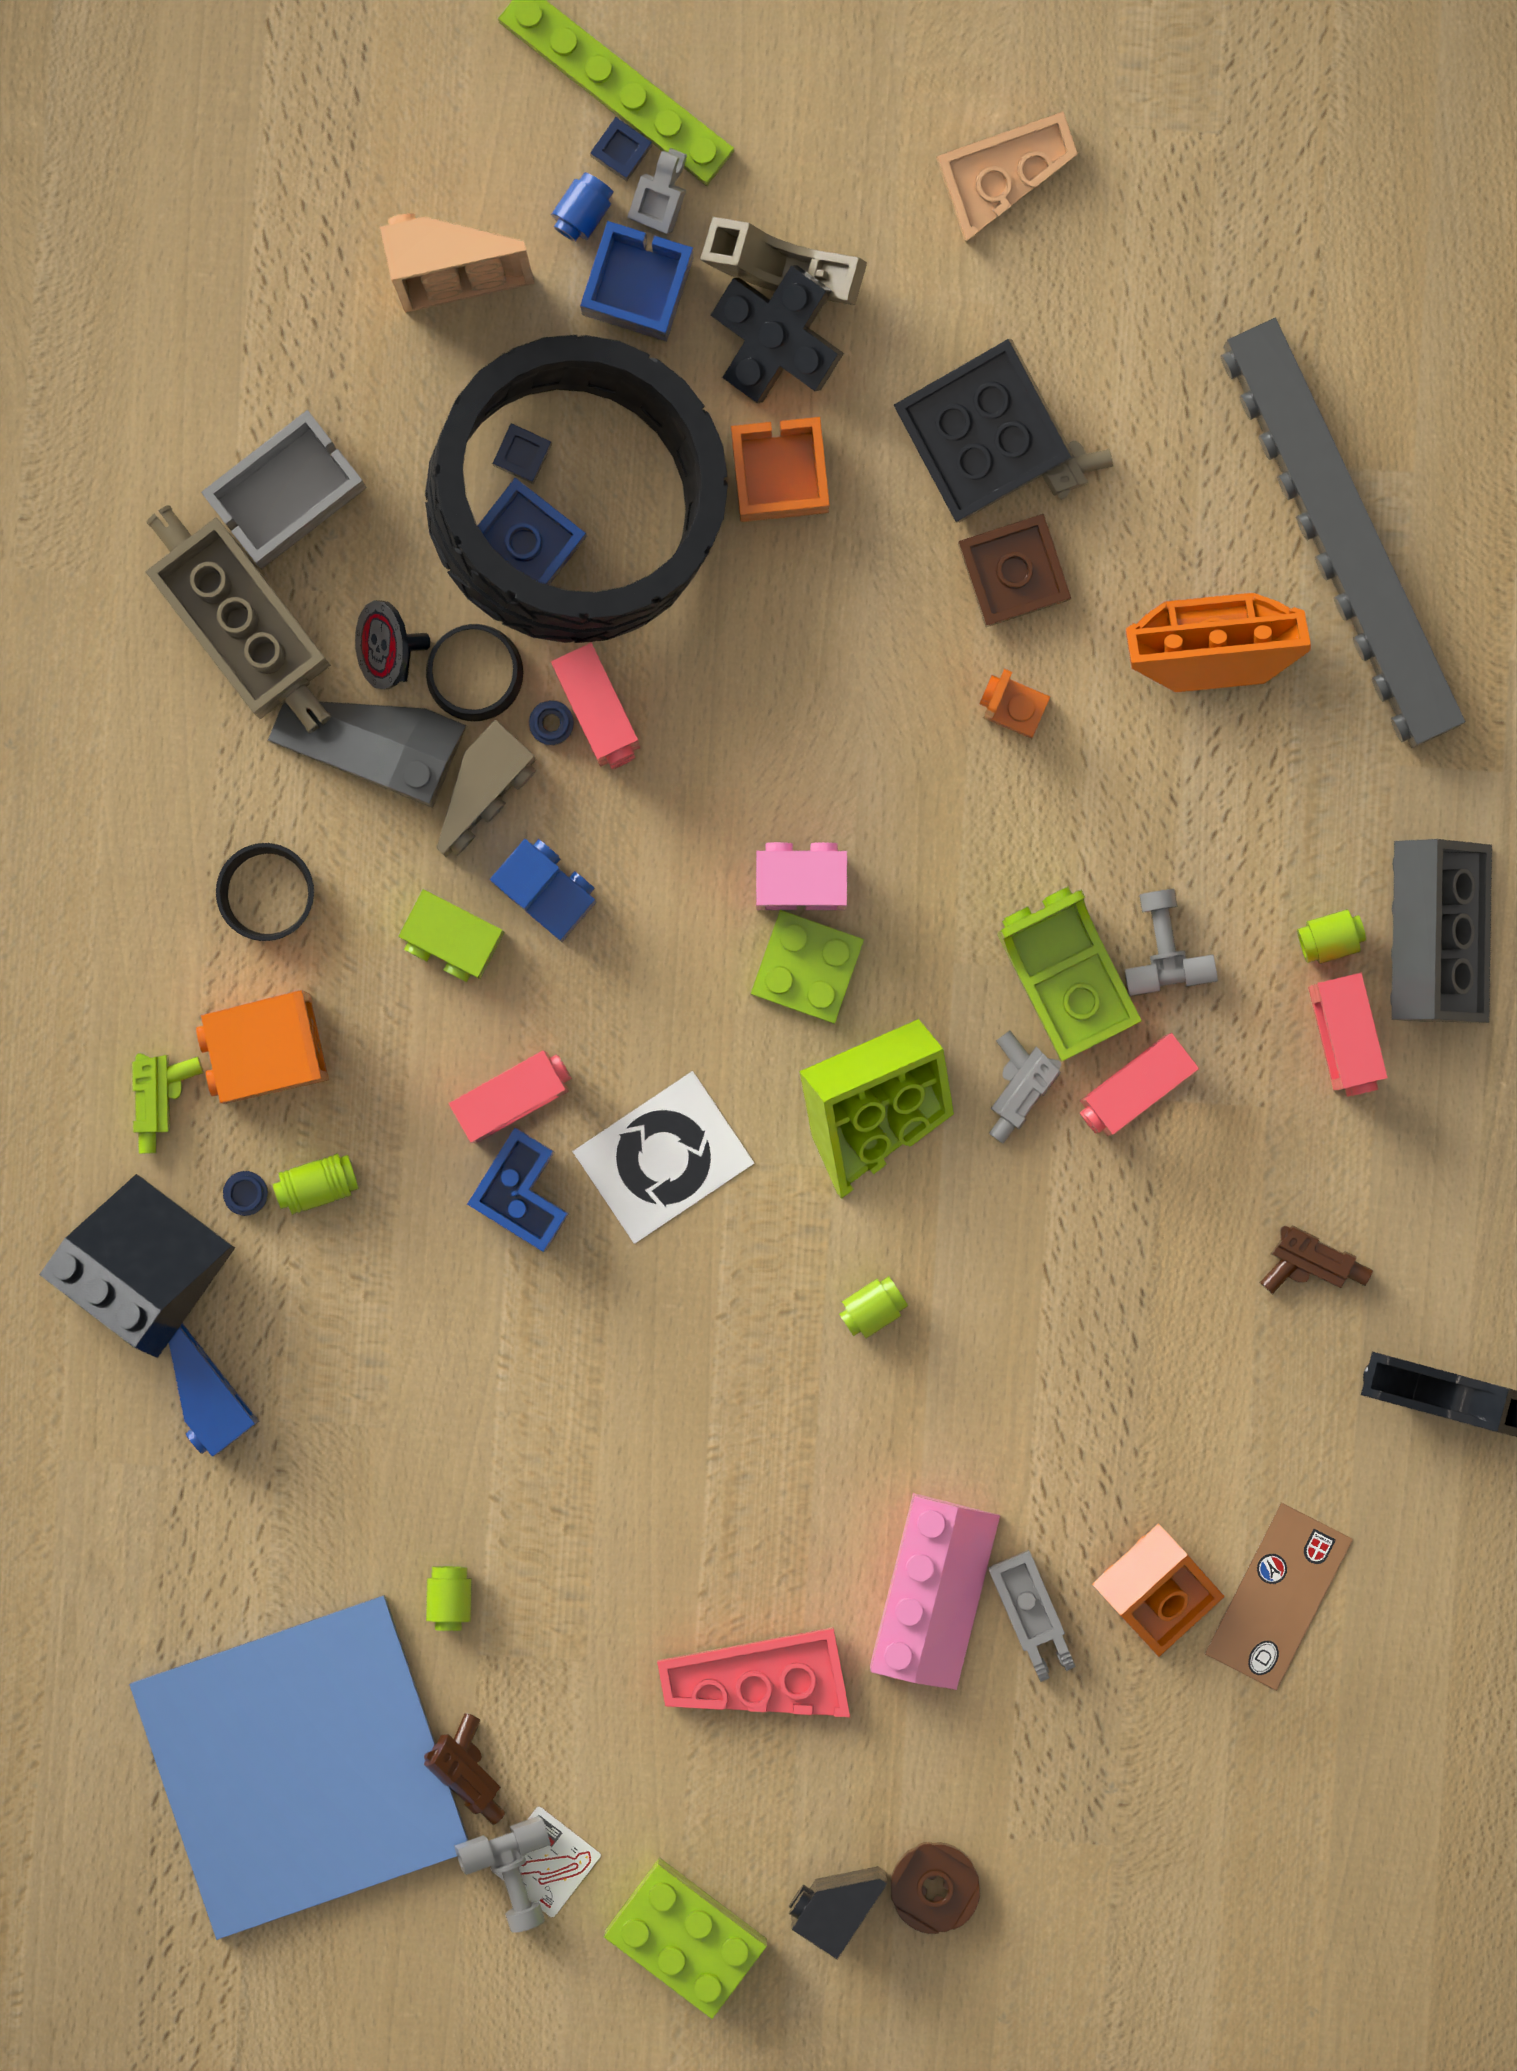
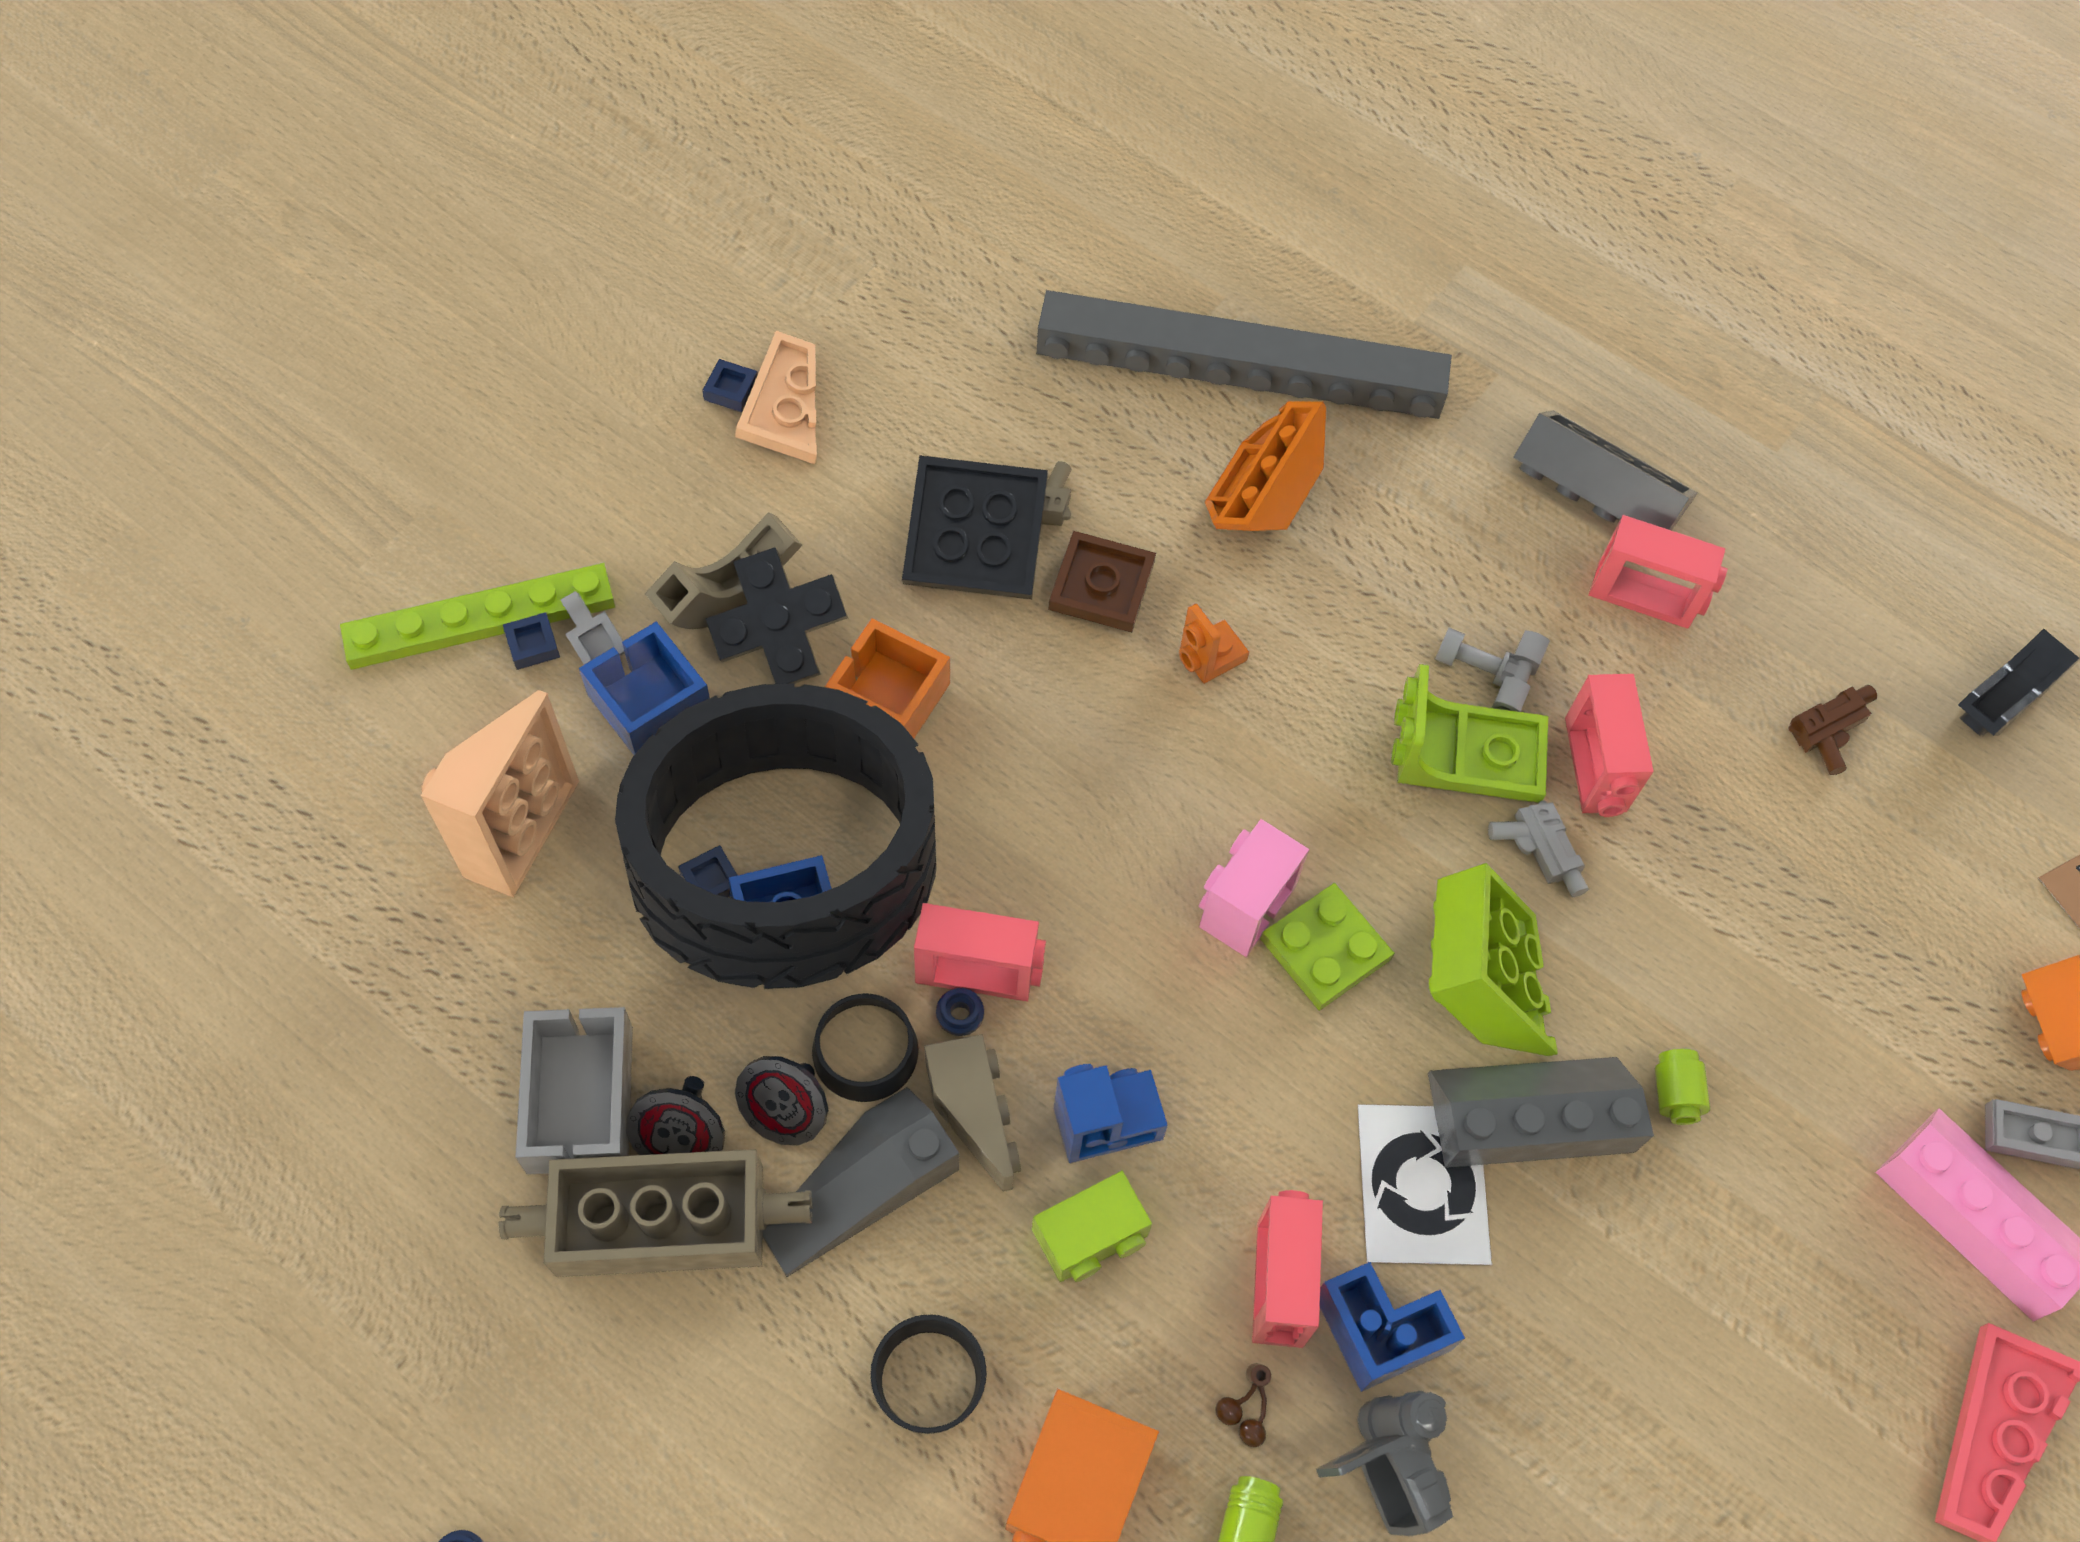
camera: 65 degrees left, 25 degrees down
(308, 584) = (675, 1121): none -> shield
(392, 1119) = (1230, 1410): none -> reddish brown piece
(427, 1256) = (1399, 1462): none -> dark grey piece
(582, 207) = (554, 681): blue brick -> none
(778, 1206) = (1538, 1111): none -> dark grey slope
(984, 113) = (729, 385): none -> dark blue plate
(1331, 937) = (1562, 547): lime brick -> none

